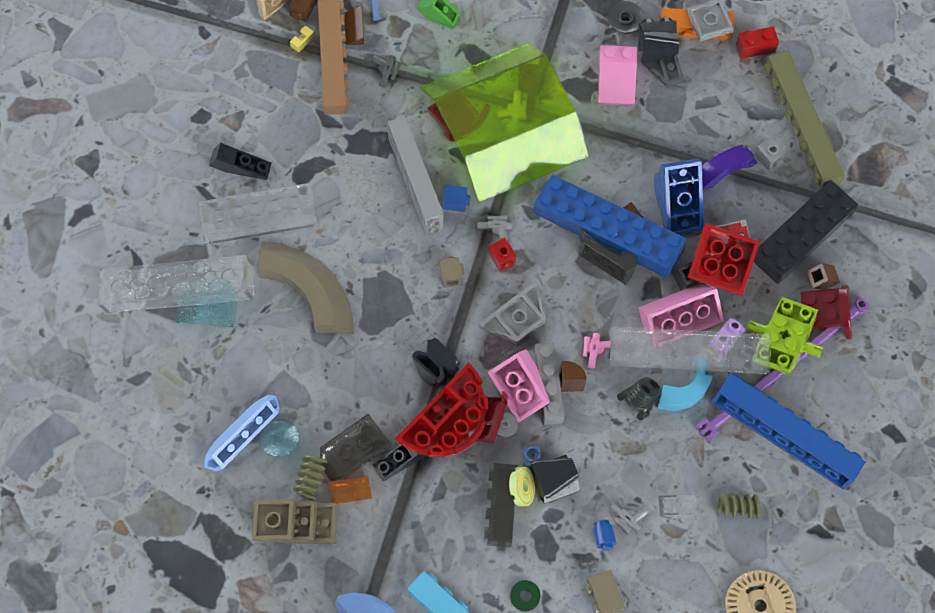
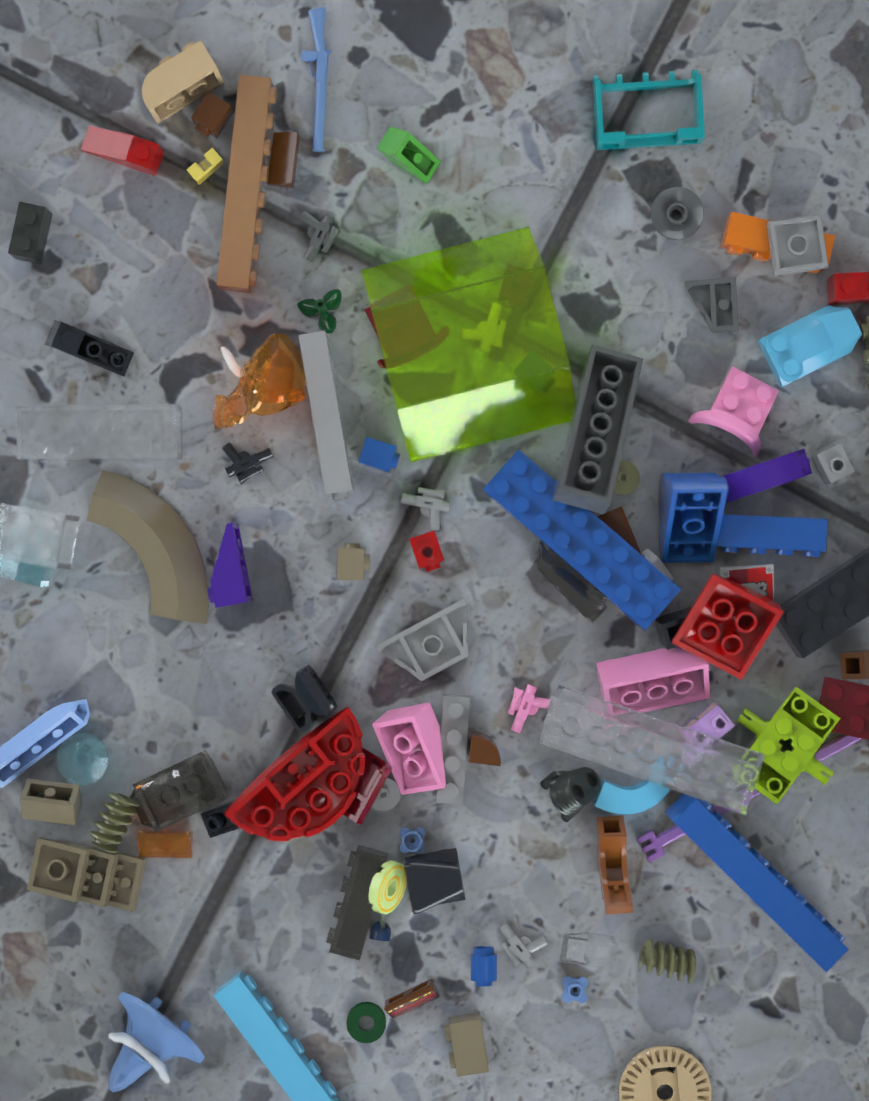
camera: 15 degrees right, 20 degrees up
(188, 96) = (30, 233): none -> pearl dark grey brick
(244, 36) = (123, 149): none -> slope
(261, 470) = (51, 801): none -> dark tan brick
(362, 221) = (244, 464): none -> black piece
(368, 165) = (266, 384): none -> clear orange animal
(368, 294) = (230, 575): none -> dark purple slope
(401, 108) = (330, 301): none -> dark green plant
(522, 524) = (380, 930): none -> dark blue hinge
(556, 571) = (411, 999): none -> reddish brown slope
(604, 151) = (598, 429): none -> dark grey brick
(617, 75) = (644, 304): bright pink slope -> none
(628, 186) = (627, 478): none -> olive wheel
(657, 39) = (714, 263): black piece -> none
(671, 545) = (571, 982): none -> medium blue plate
(681, 441) = (613, 864): none -> dark orange arch
(697, 126) = (740, 408): none -> bright pink piece
(734, 83) = (810, 343): none -> medium azure slope
(741, 202) = (773, 533): none -> blue wedge

